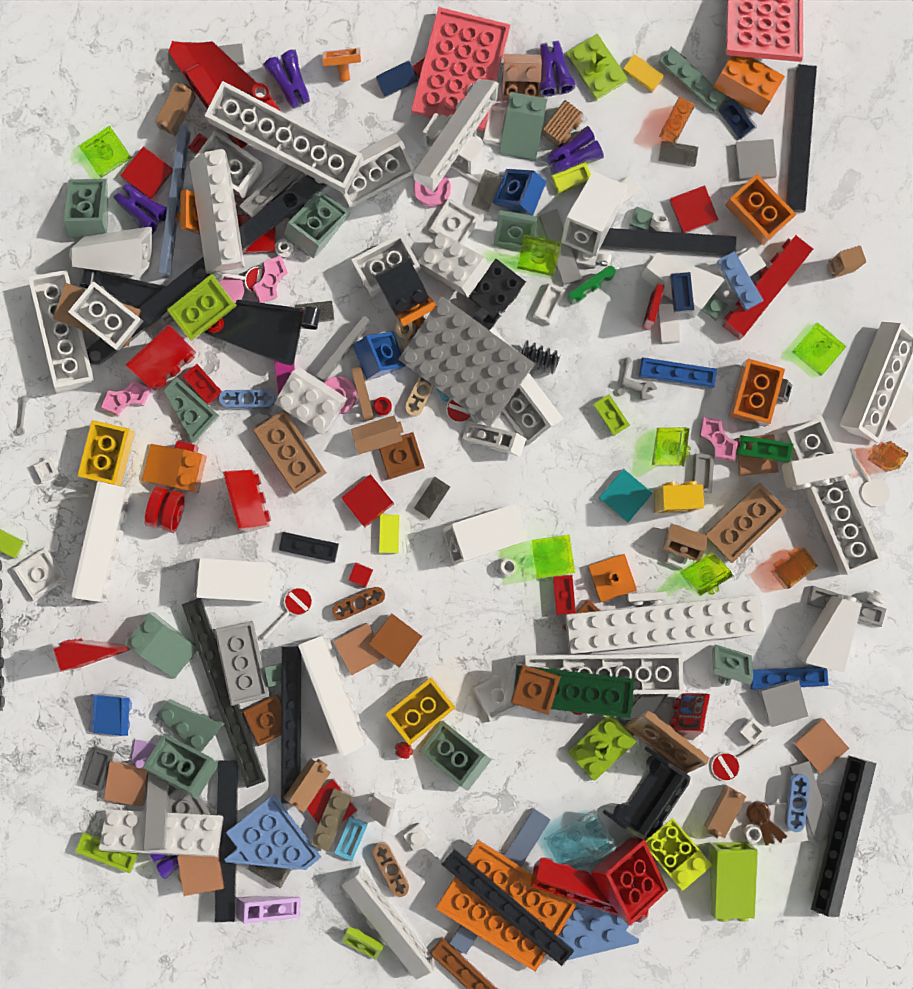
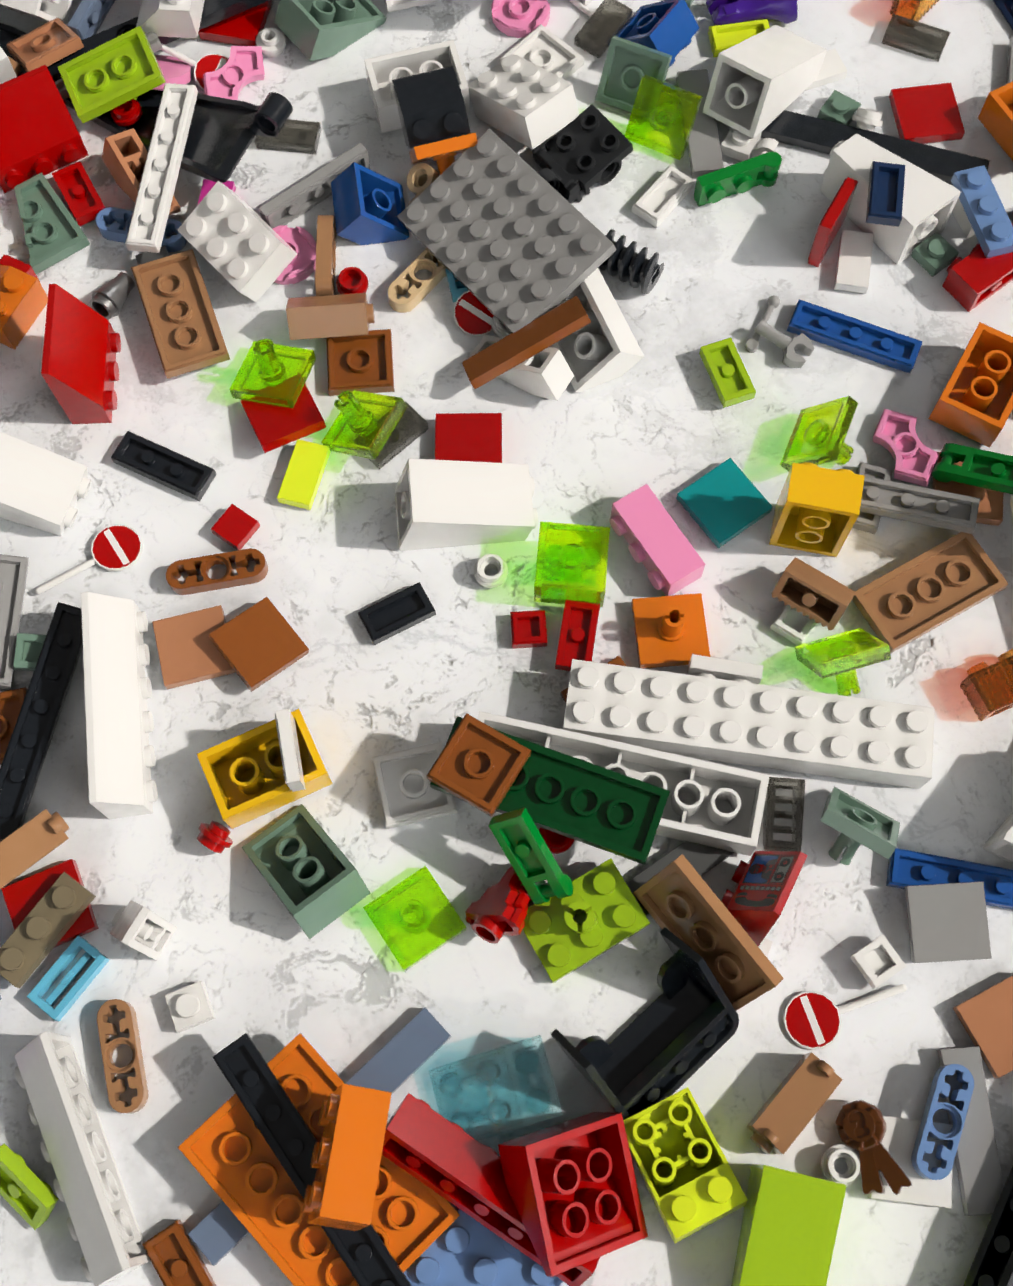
camera: 20 degrees right, 15 degrees down
(150, 291) = (45, 45): none -> nougat tile
(238, 368) = (126, 160): none -> nougat slope
(245, 448) = (111, 296): none -> flat silver cone
(251, 362) = (161, 168): none -> white tile
(355, 477) = (273, 374): none -> clear neon green tile
(416, 498) = (363, 423): none -> clear neon green tile
(435, 704) = (289, 750): none -> white tile
(463, 603) = (396, 613): none -> black tile
(476, 494) = (469, 437): none -> red tile
(496, 430) = (526, 342): none -> dark orange tile
(517, 765) = (415, 918): none -> clear neon green tile
(522, 897) = (347, 1158): none -> orange brick
(536, 595) = (528, 629): none -> red tile
(561, 749) = (500, 909): none -> red rock
(571, 727) = (530, 856): none -> green plate
(593, 530) = (656, 541): none -> bright pink brick
(692, 648) = (769, 813): none -> clear smoke slope
(726, 475) = (919, 505): none -> light grey tile

